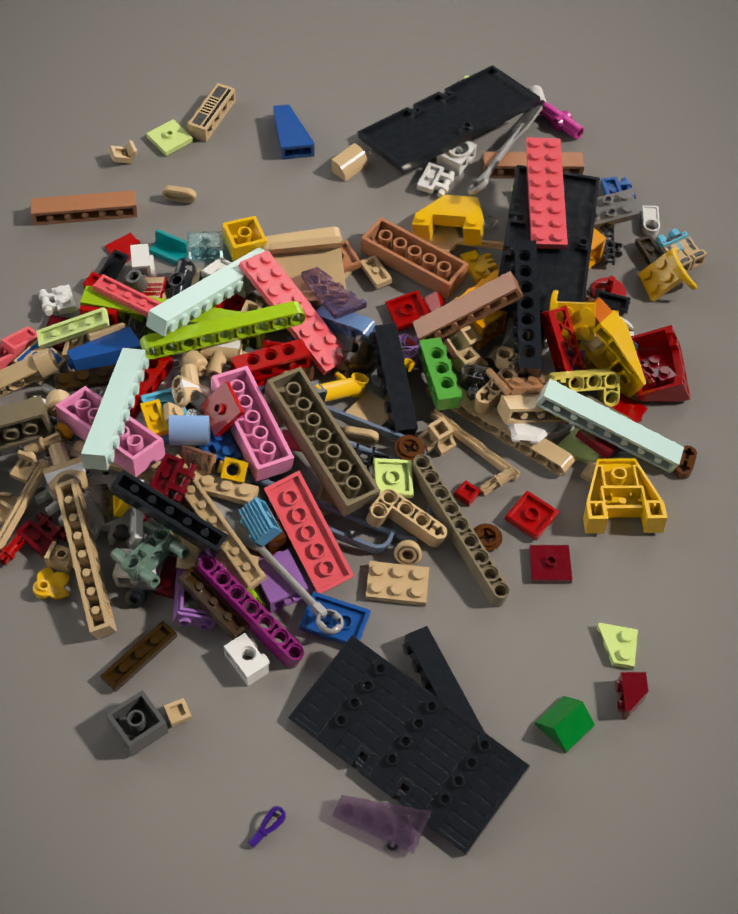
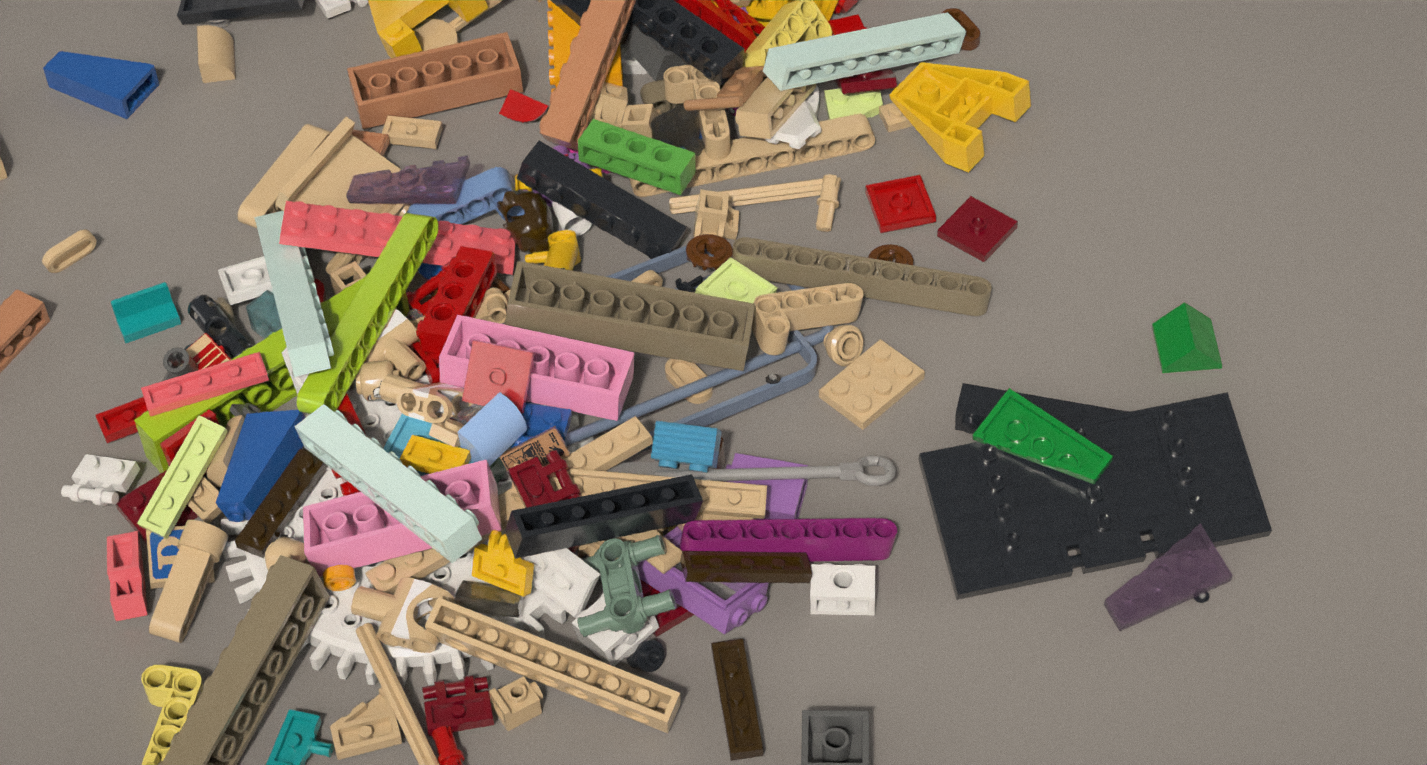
camera: 45 degrees left, 5 degrees down
(25, 466) = (347, 654): tan bracket -> none
(44, 443) = (334, 613): tan axle -> none
(51, 584) = (542, 737): yellow plate -> none
(114, 264) = (107, 385): black tile -> none
(121, 533) = (549, 608): black piece -> none
(123, 244) = (89, 363): red piece -> none
(142, 260) = (145, 348): white brick -> none
(177, 712) = (852, 698): tan plate -> none
(205, 245) = (186, 271): clear light blue brick -> none
(242, 236) = (221, 225): yellow slope -> none
(242, 469) = (597, 420): yellow brick -> none
(262, 832) = (1082, 711): dark purple piece -> none
(309, 532) = (744, 415): coral plate -> none
(354, 619) = (854, 495): blue plate -> none
(370, 408) = (607, 257): tan tile -> none
(406, 309) = (502, 137): red plate -> none
(408, 686) = (1037, 436): none -> green wing
(467, 493) = (812, 239): red tile -> none
(479, 265) = (518, 34): yellow hinge -> none
(620, 644) = (1134, 234): yellowish green wing -> none
(632, 692) = (1203, 260): dark red slope -> none

